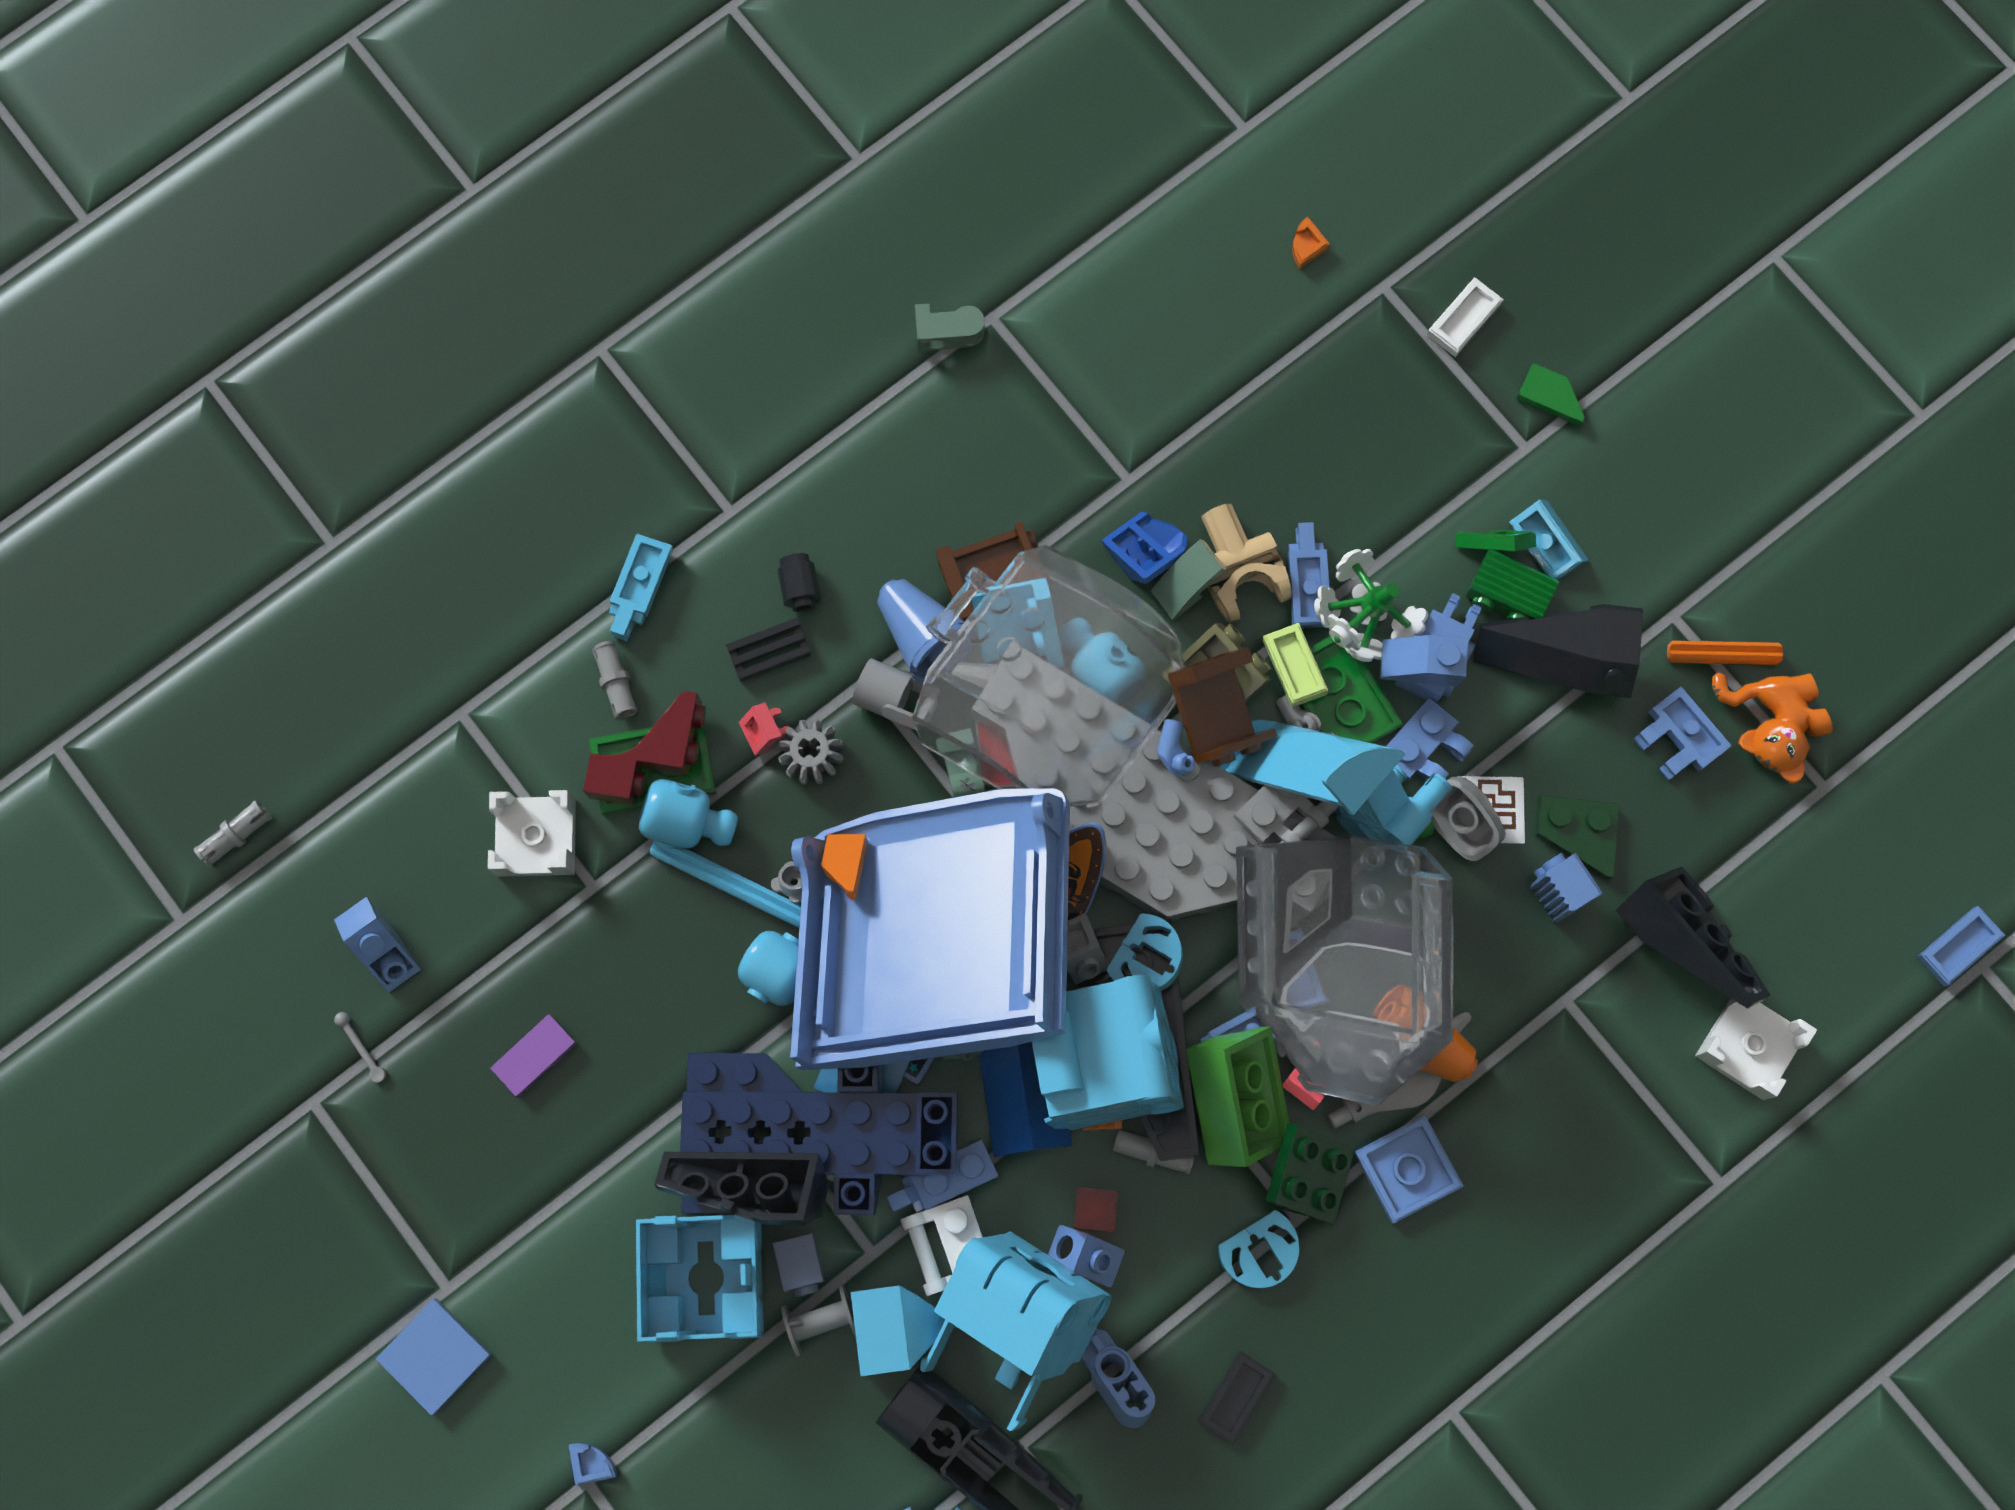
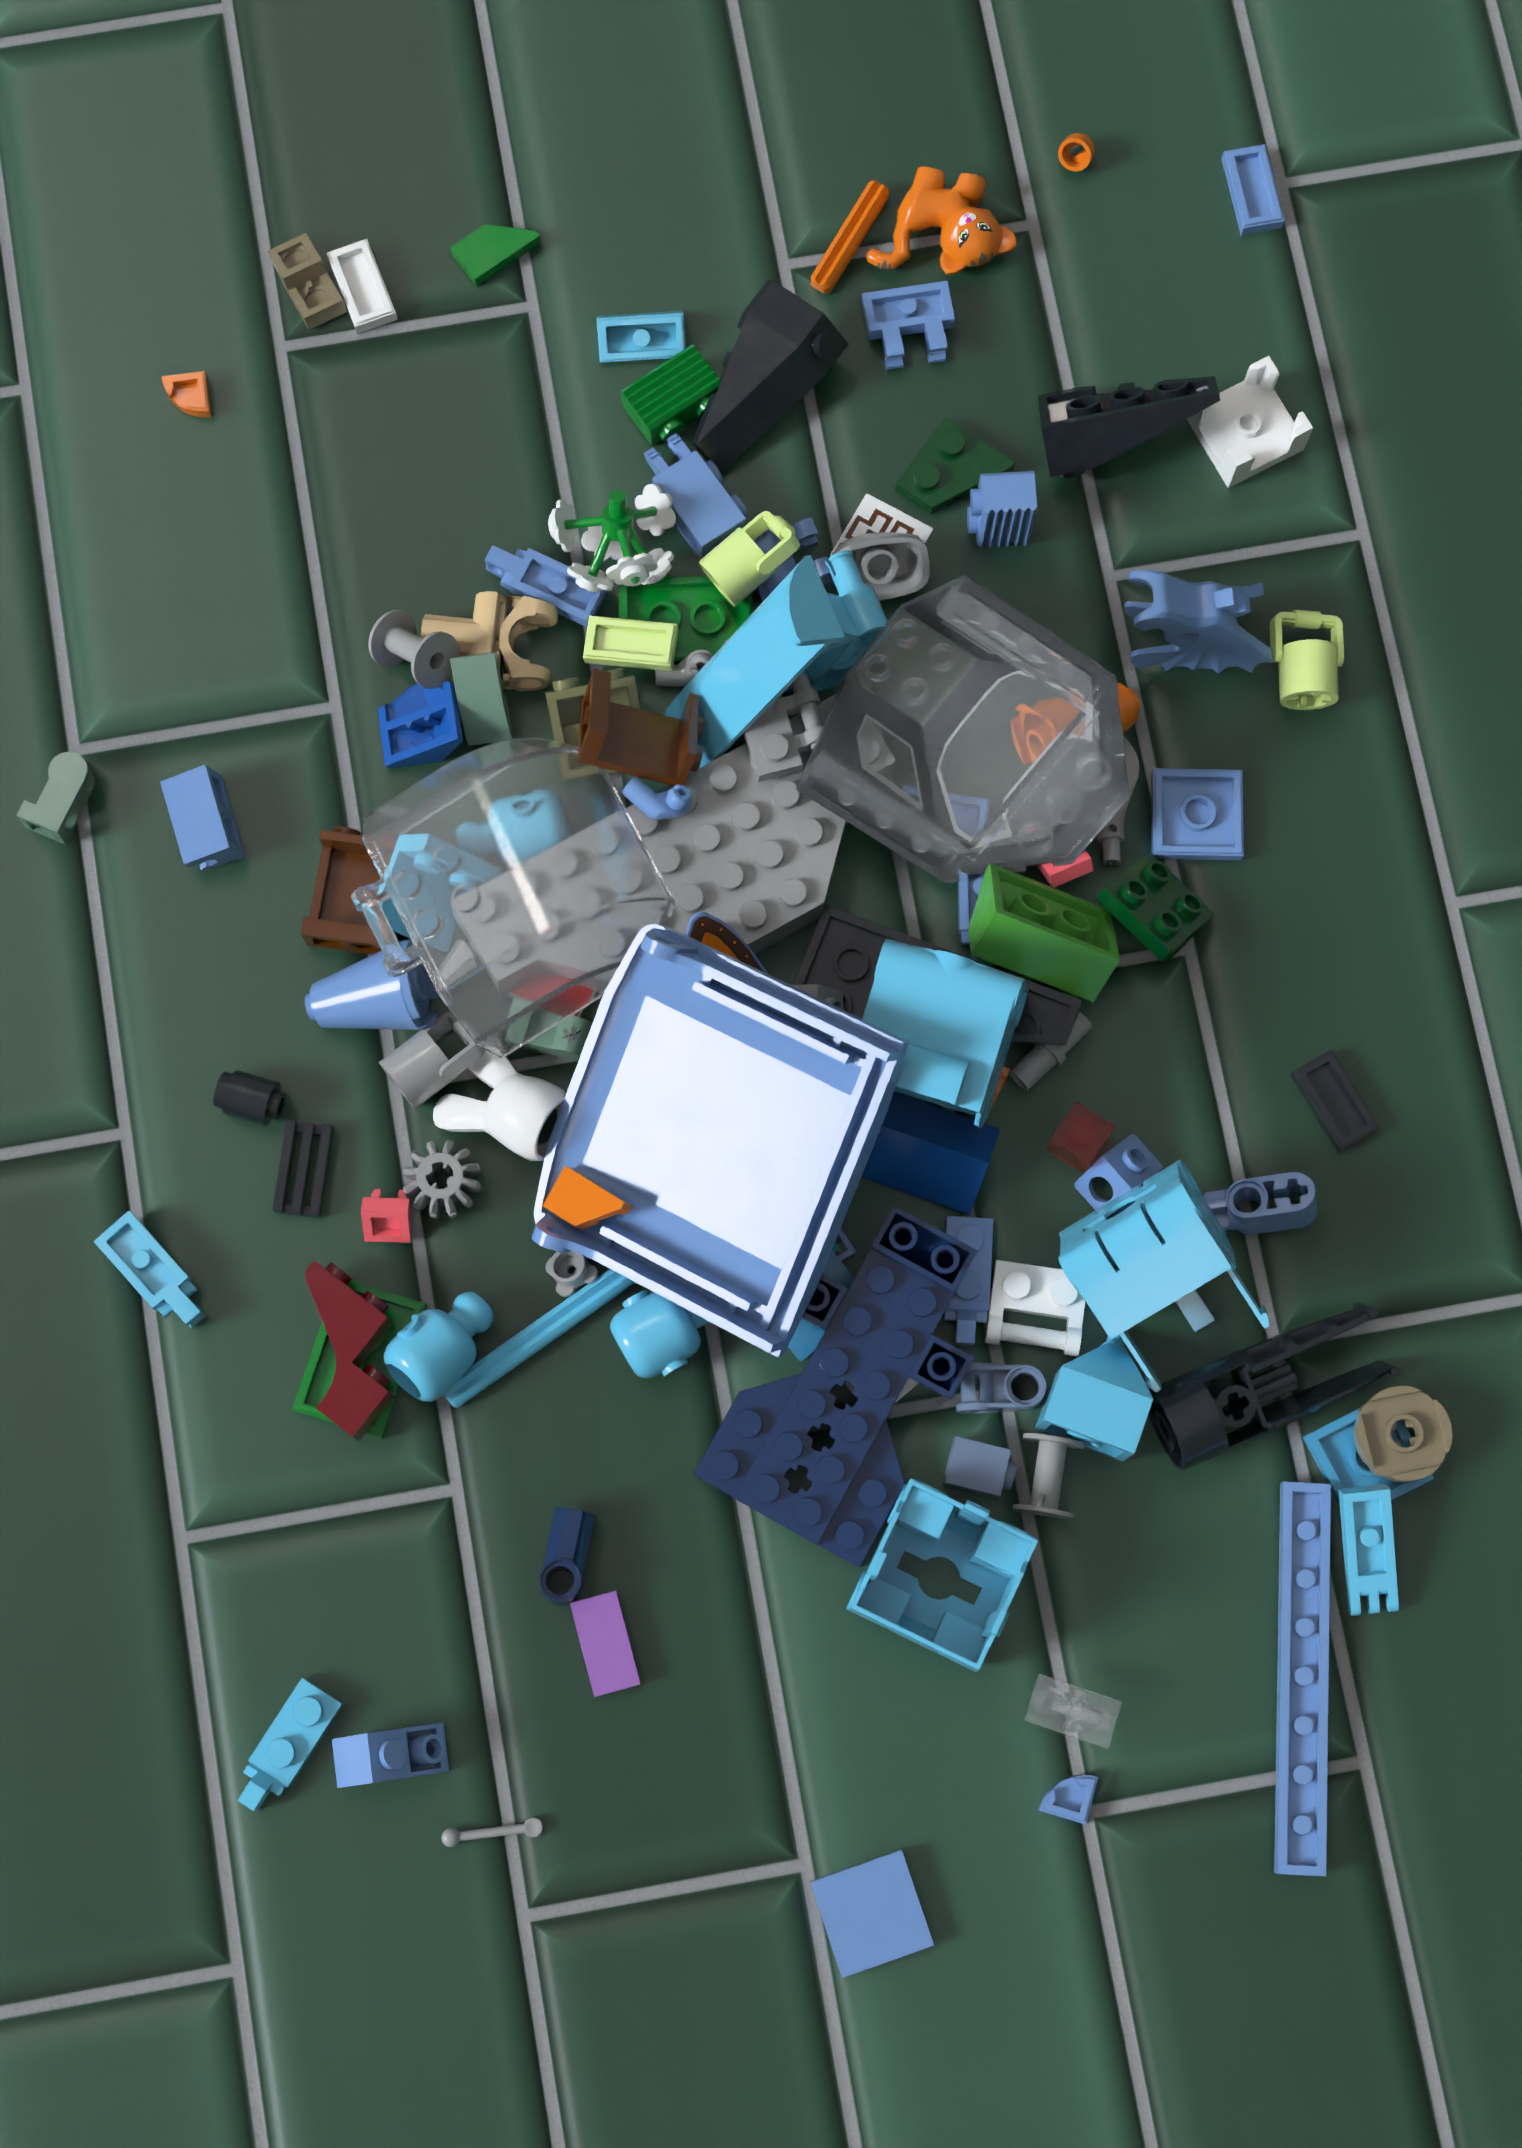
camera: 65 degrees left, 0 degrees up
(232, 833) = (173, 1859): light grey pin -> none
(353, 868) = (289, 1742): none -> medium azure hinge
(533, 834) = (364, 1522): white panel -> none
(585, 991) = (567, 1551): none -> dark blue piece
(614, 680) = (242, 1348): light grey pin -> none
(652, 1431) = (1073, 1711): none -> clear hips
(748, 1184) = (878, 1466): black wedge -> none
(867, 1246) = (995, 1389): none -> sand blue piece
(886, 773) = (511, 1113): none -> white piece
(987, 434) = (202, 818): none -> medium blue hinge
(1168, 947) = (856, 918): medium azure piece -> none
(1199, 493) = (396, 639): none -> light grey piece
(1285, 1253) = (1217, 977): medium azure piece -> none
(1401, 709) = (740, 565): none -> yellowish green piece
(1425, 659) = (703, 509): medium blue slope -> none
(1444, 276) = (307, 281): none -> dark tan slope
(1496, 540) = (613, 382): green tile -> none
(1555, 1085) = (1197, 623): none -> medium blue animal
(1575, 1197) = (1307, 666): none -> yellowish green piece
(1900, 795) = (1080, 159): none -> orange hinge

